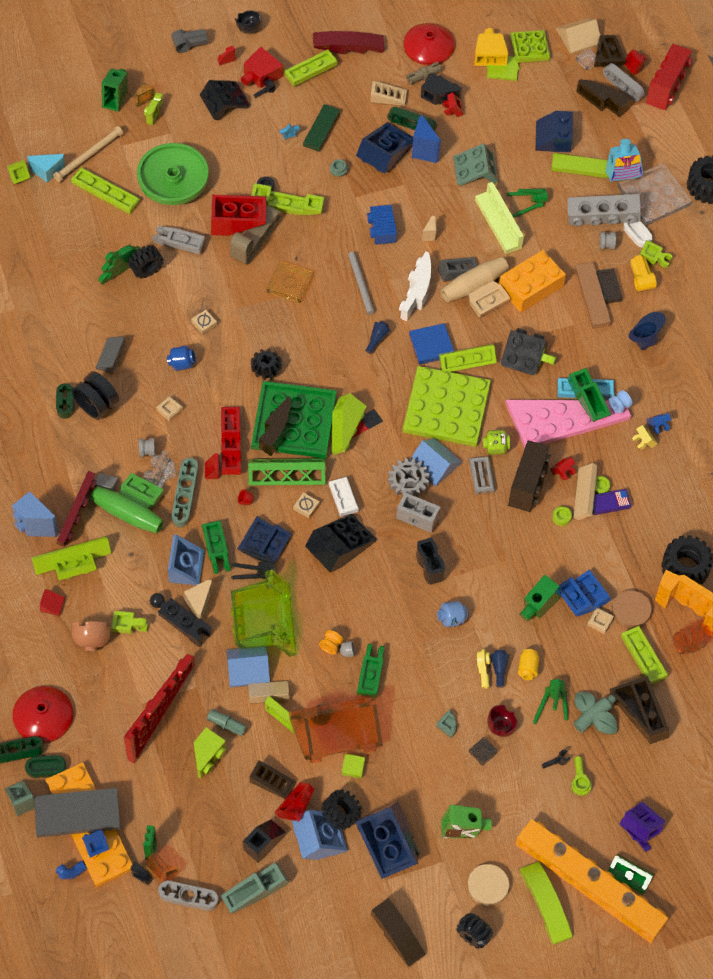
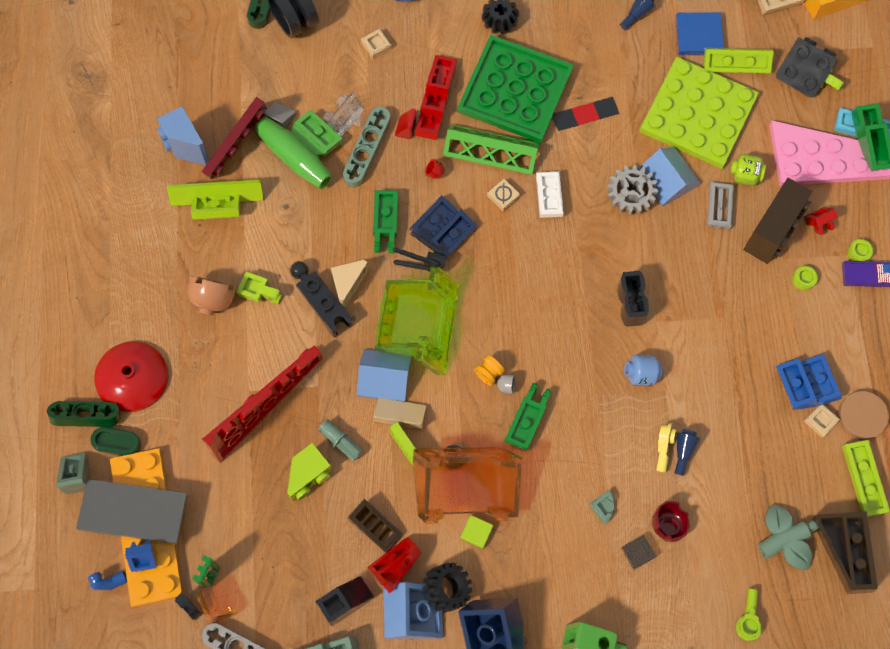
camera: 15 degrees right, 10 degrees up
(51, 602) = (177, 243): red slope -> none
(146, 447) = (336, 83): light grey wheel -> none
(185, 562) = (343, 231): medium blue slope -> none
(276, 427) = (491, 93): dark brown slope -> none
(339, 542) = (531, 249): black slope -> none
(345, 418) = (575, 101): lime slope -> none
(418, 512) = (633, 235): light grey brick -> none
(528, 664) = (720, 456): yellow brick -> none
(540, 598) = (762, 372): green torso -> none
(556, 691) = (747, 499): green plant -> none
(558, 760) = (728, 586): black hand -> none
(585, 491) = (841, 254): tan tile -> none

